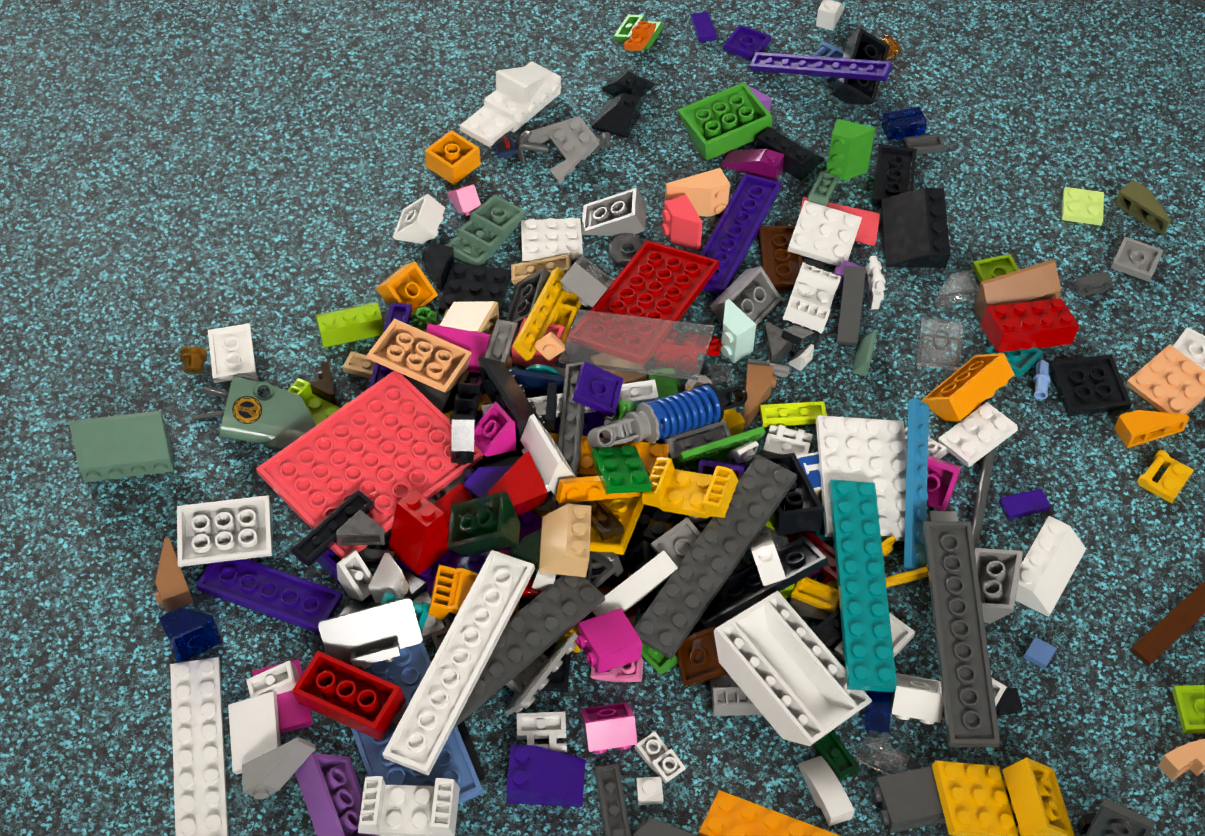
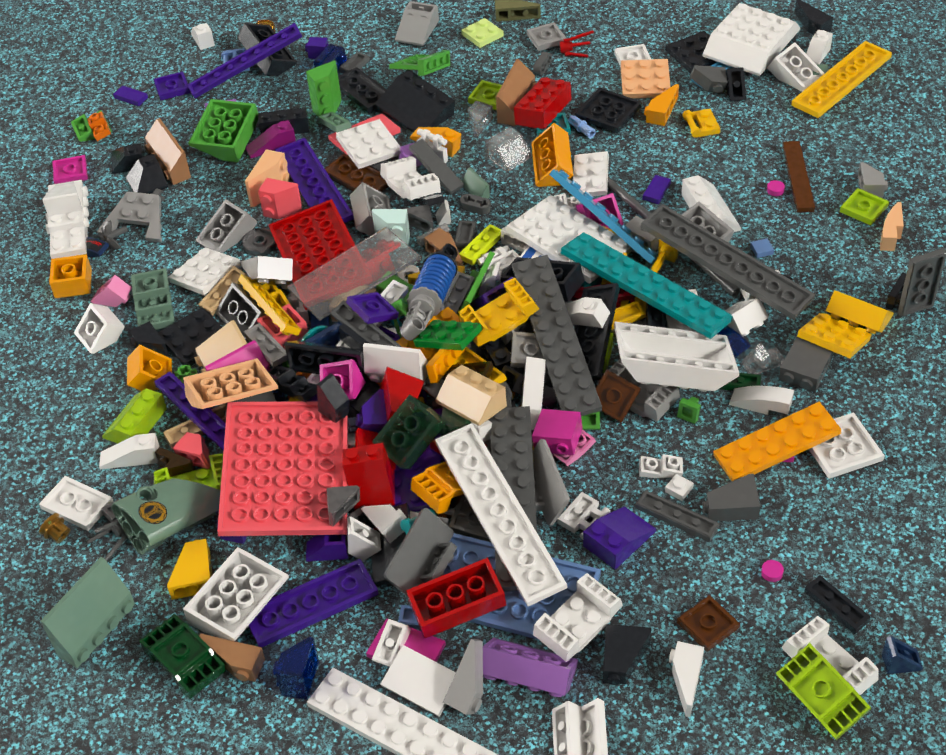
camera: 45 degrees left, 5 degrees down
(141, 541) = (183, 655): none -> dark green plate
(231, 481) = (191, 570): none -> yellow slope
(313, 347) = (131, 452): none -> white slope
(324, 535) = (317, 518): black tile -> none
(350, 384) = (194, 448): none -> coral slope
(550, 346) = (303, 314): light nougat plate -> none
(574, 60) = (70, 169): none -> dark pink tile
(609, 727) = (615, 476): slope -> none
(655, 107) = (167, 152): none -> slope
(751, 733) = (689, 409): none -> bright green tile
(796, 391) = (465, 233): none -> dark grey tile
(839, 372) = (475, 204): none -> dark grey beam
(896, 285) = (452, 136): none -> light orange slope
(908, 99) = (316, 46): none -> dark purple brick
(973, 193) = (424, 63): none -> bright green fence
(1028, 148) = (417, 23): none -> light grey slope
(1142, 285) = (567, 46): none -> red plant
(1142, 607) = (775, 188): none -> dark pink tile

